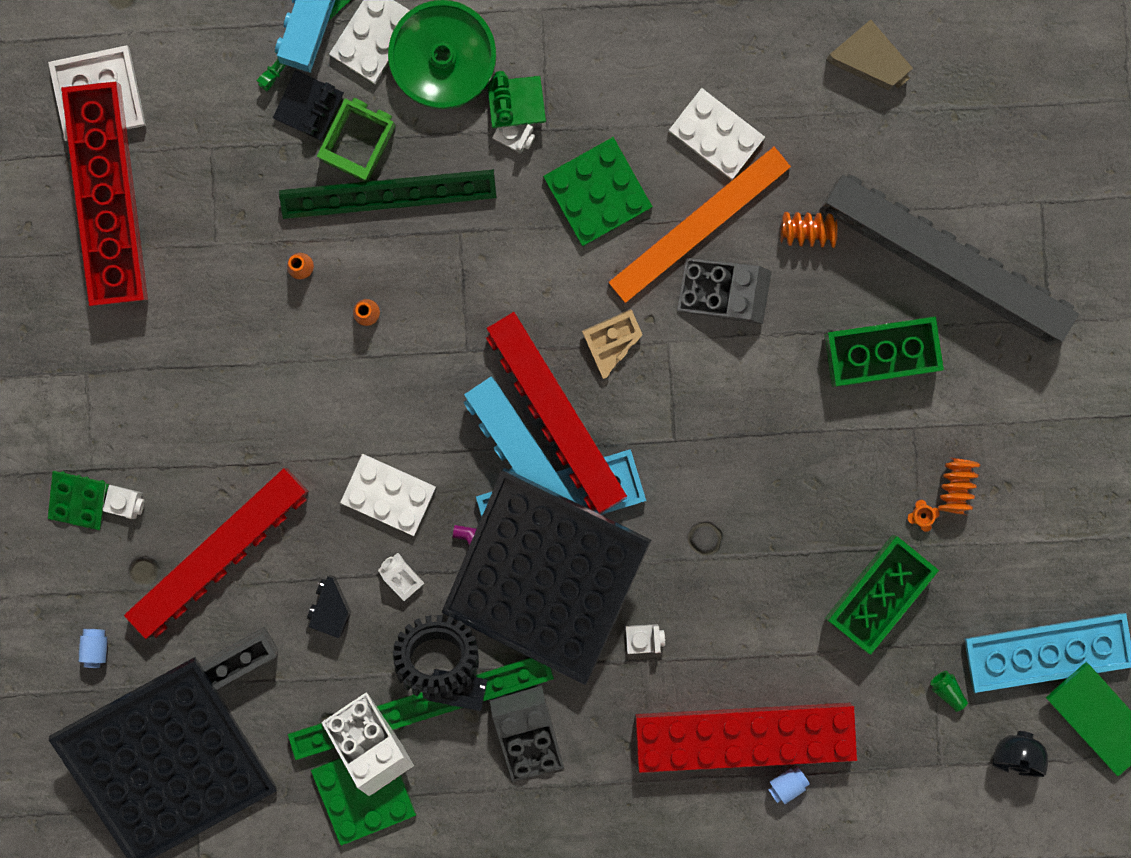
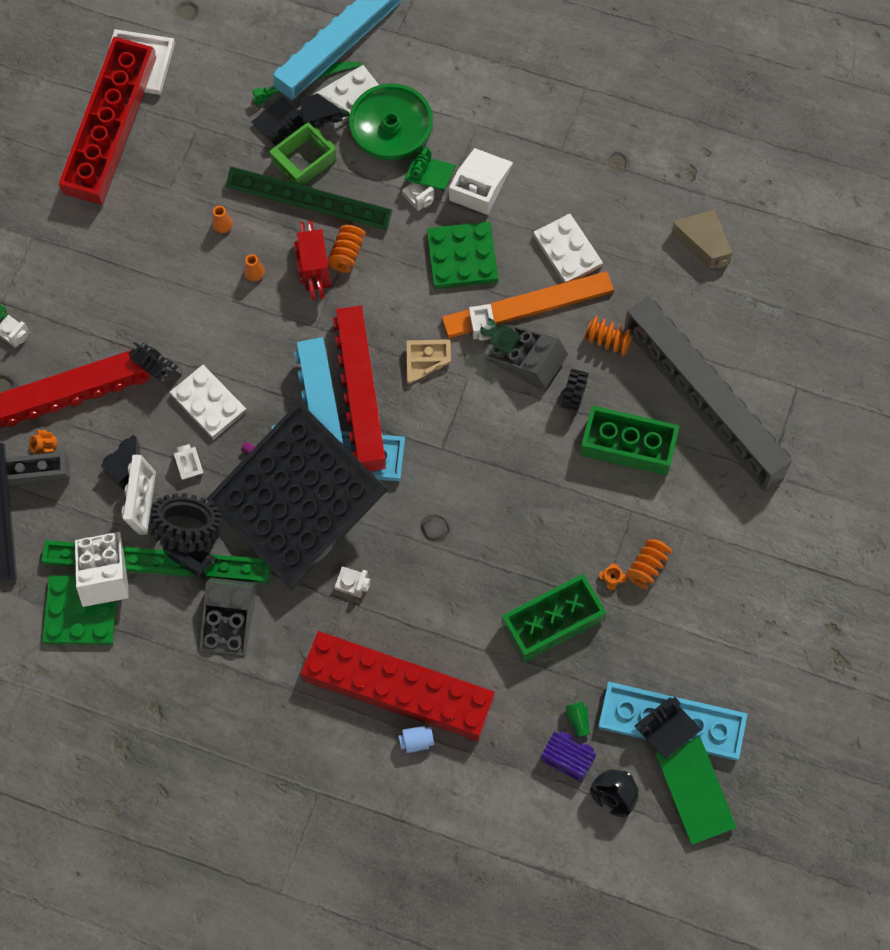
camera: 25 degrees right, 20 degrees down
(229, 625) = (43, 442): none -> orange gear
(301, 470) = (152, 361): none -> black hinge
(352, 73) = (321, 110): none -> black slope
(368, 644) = (139, 494): none -> white plate
(432, 276) = (312, 260): none -> red brick
(461, 241) = (346, 248): none -> orange piece
(579, 86) = (479, 181): none -> white slope
(658, 272) = (479, 318): none -> white bracket
(693, 287) = (502, 338): none -> clear green plate
(799, 316) = (574, 389): none -> black tyre
(956, 737) = (568, 756): none -> dark purple brick
(1051, 668) = (667, 727): none -> black hinge

